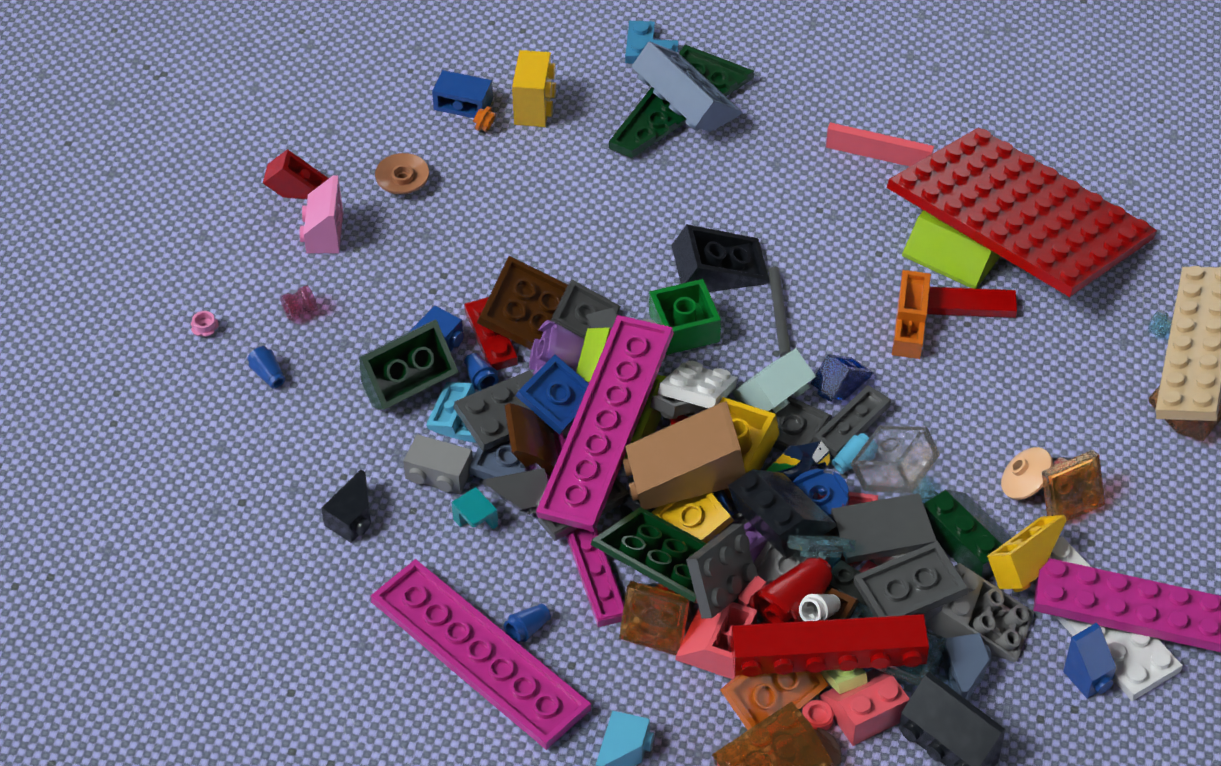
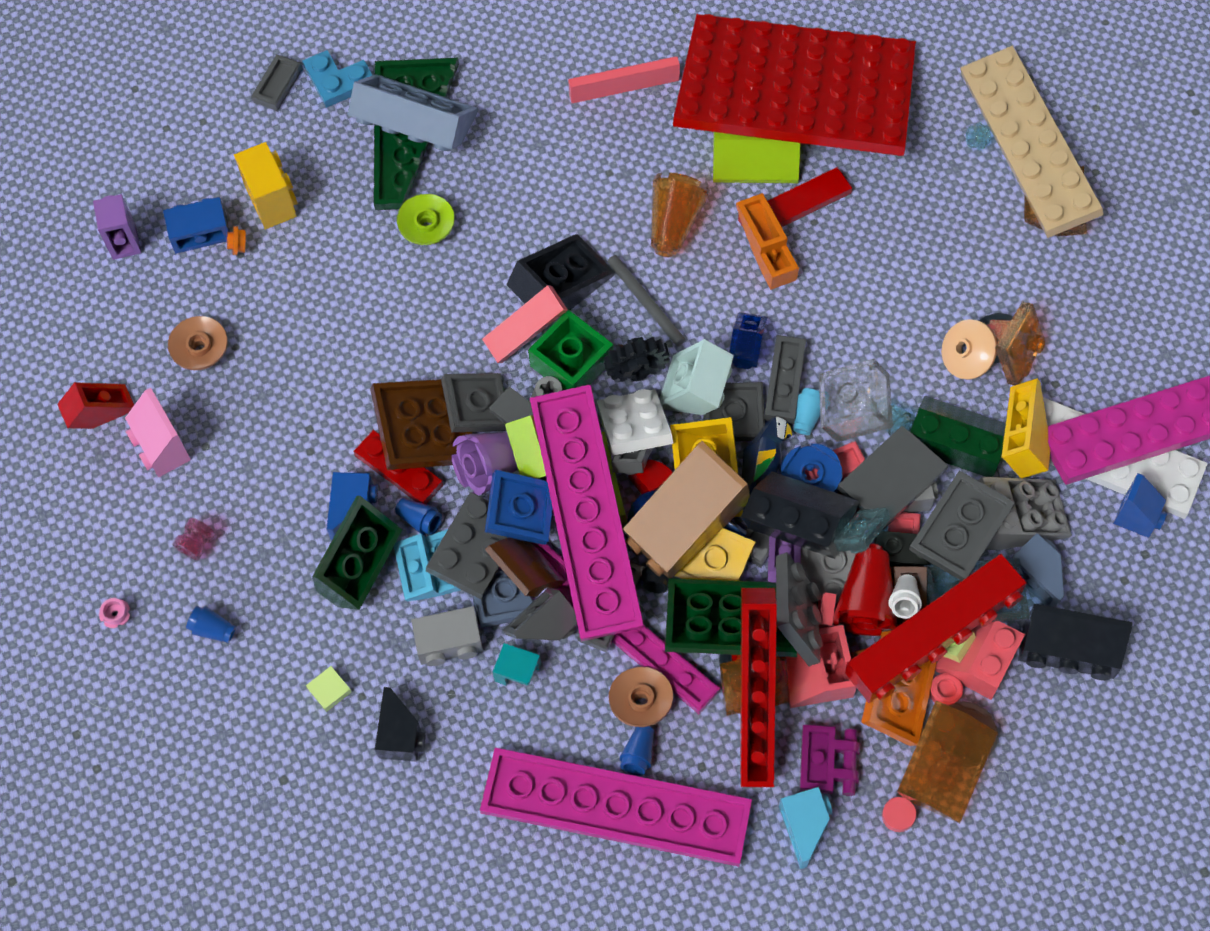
camera: 30 degrees left, 15 degrees up
(321, 456) = (328, 688): none -> yellowish green tile
(399, 65) = (116, 226): none -> medium lavender brick
(557, 584) = (638, 684): none -> nougat dish
(599, 28) = (276, 82): none -> dark grey tile
(642, 171) = (425, 209): none -> lime dish
(643, 605) = (757, 686): none -> red brick
(662, 274) = (524, 324): none -> coral tile
(670, 705) = (817, 759): none -> magenta plate
(734, 342) = (636, 359): none -> black gear
(848, 255) = (674, 211): none -> clear orange cone

